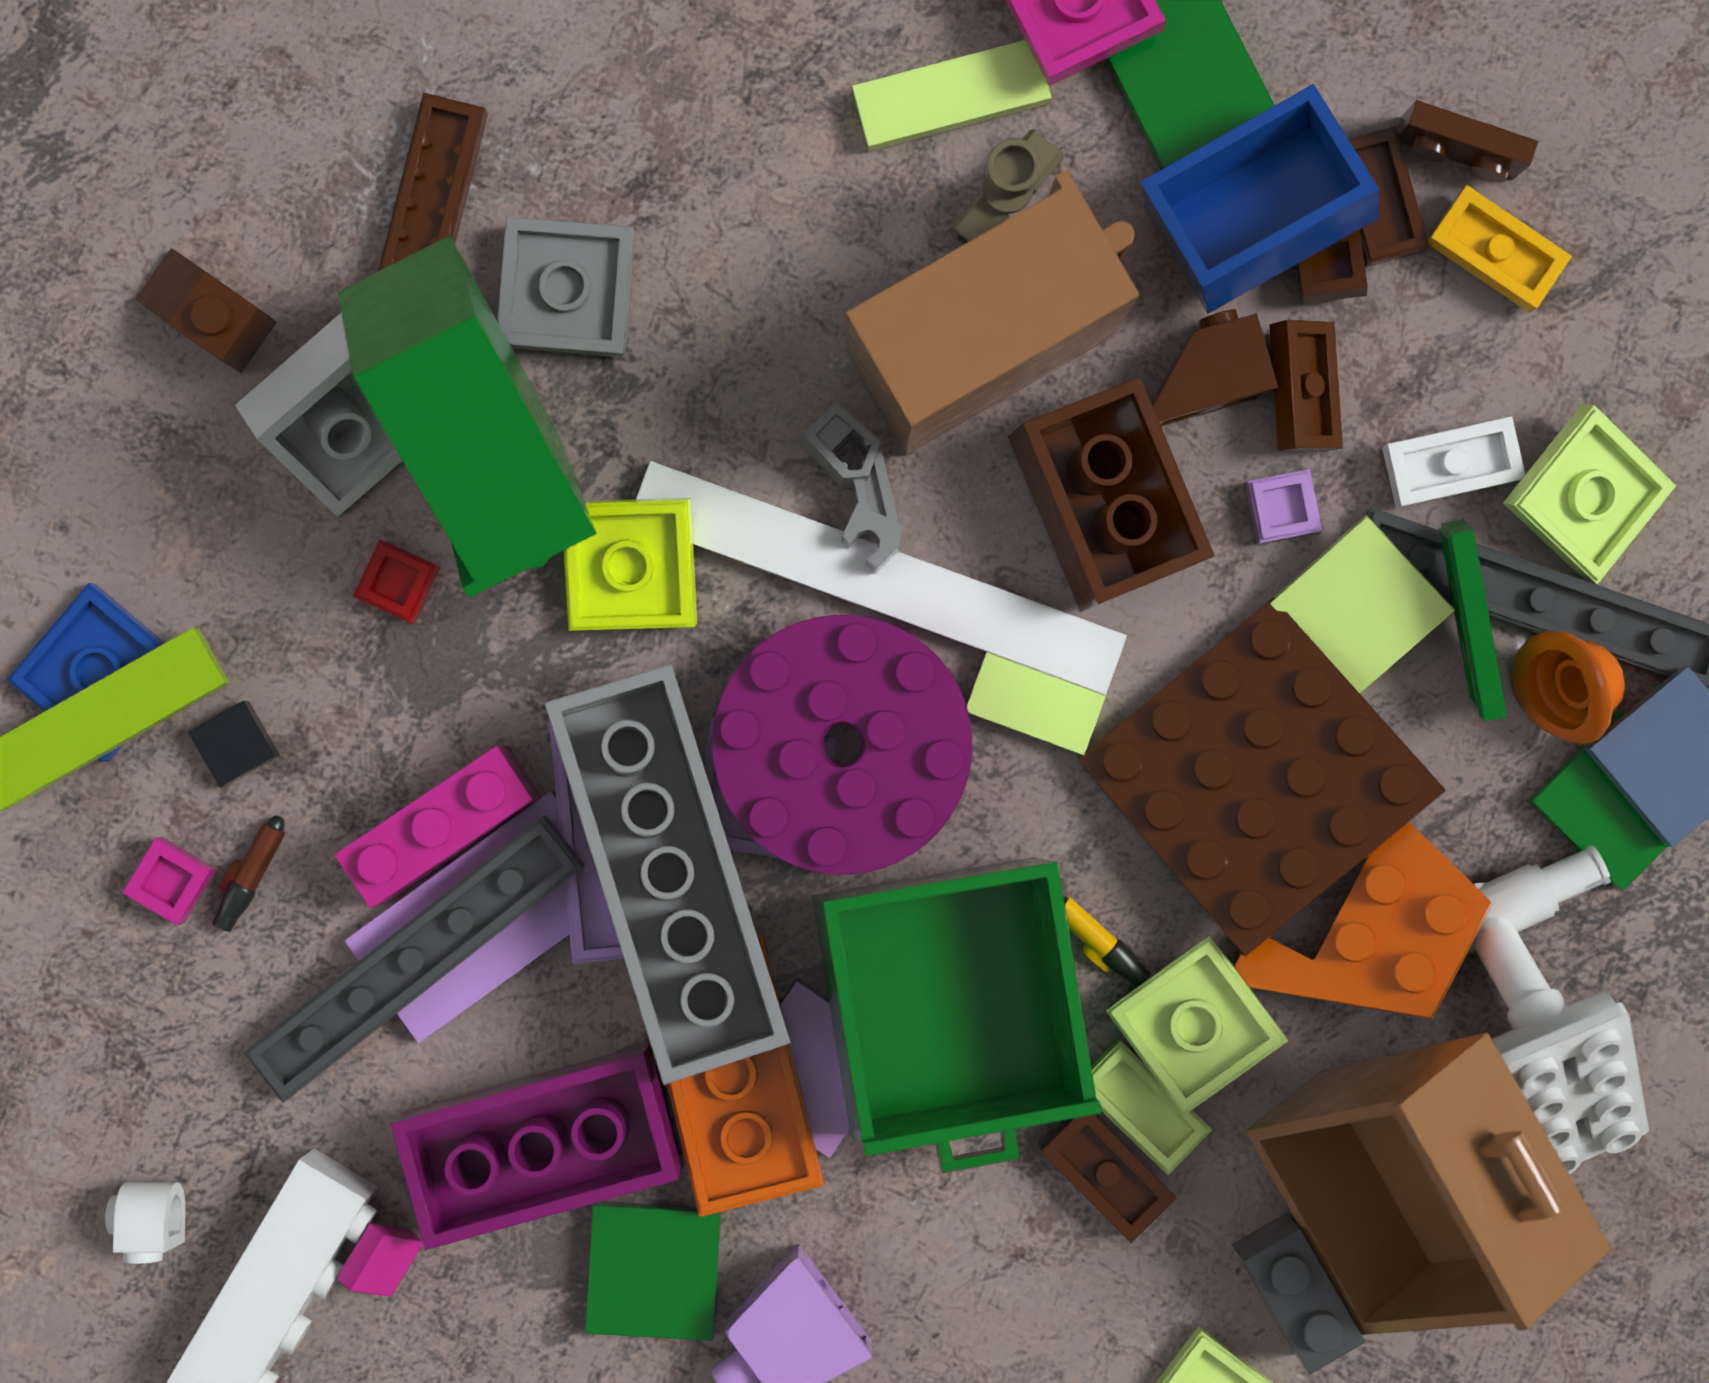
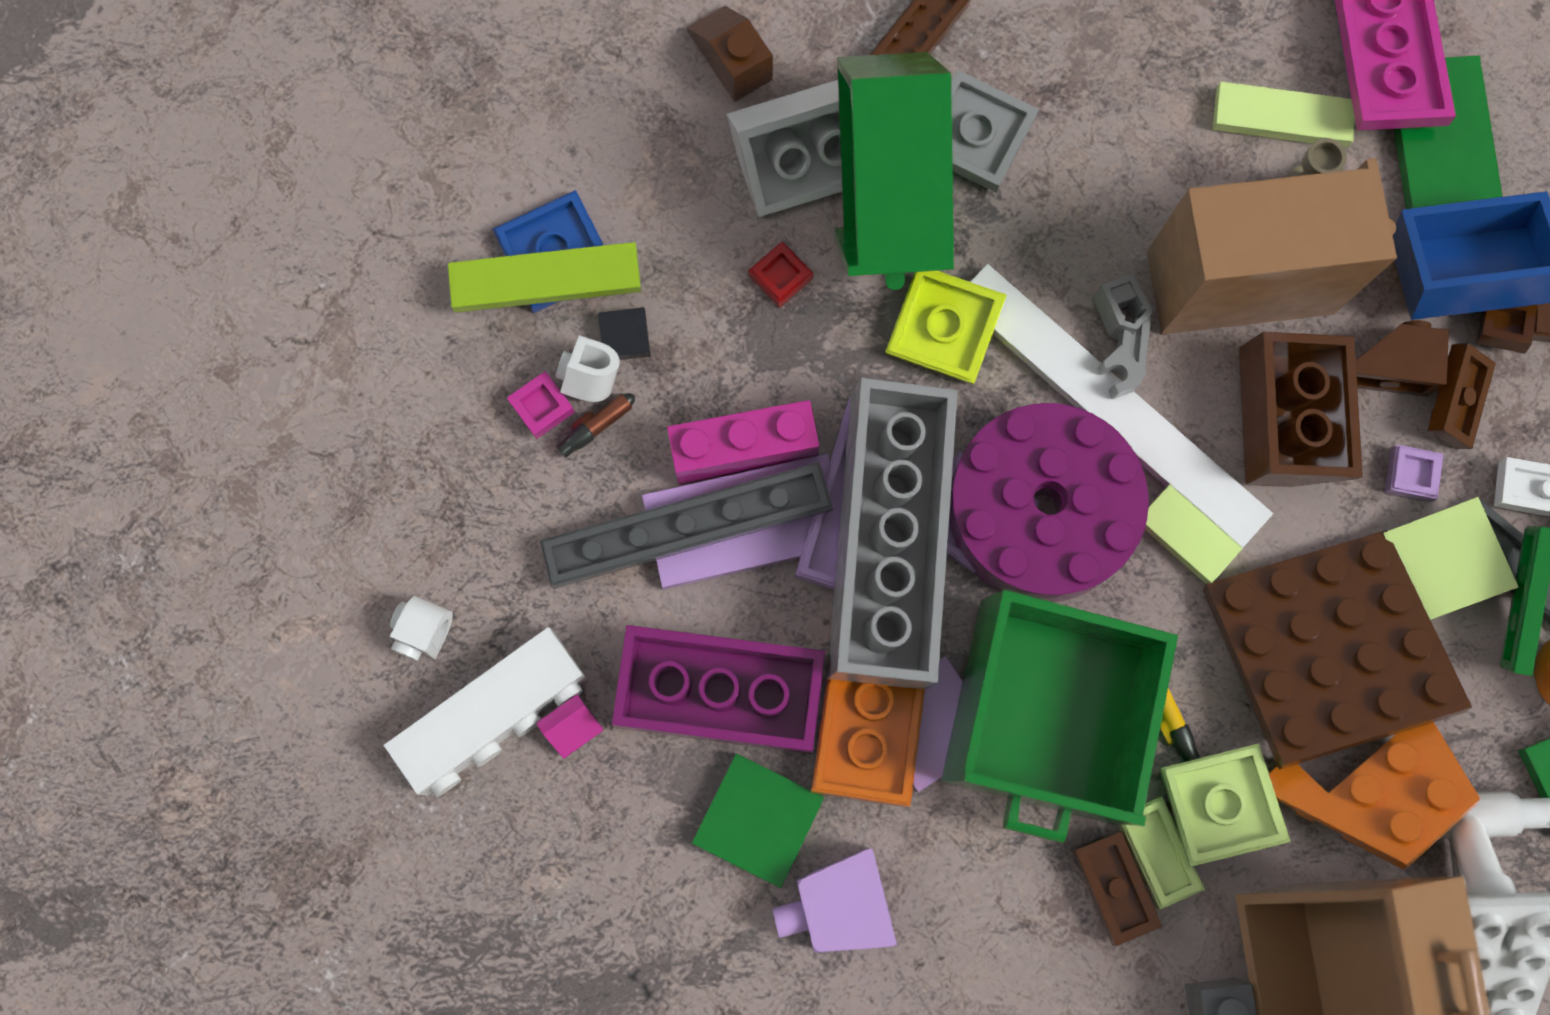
camera: 20 degrees right, 10 degrees down
(207, 816) = (588, 370): none -> white plate

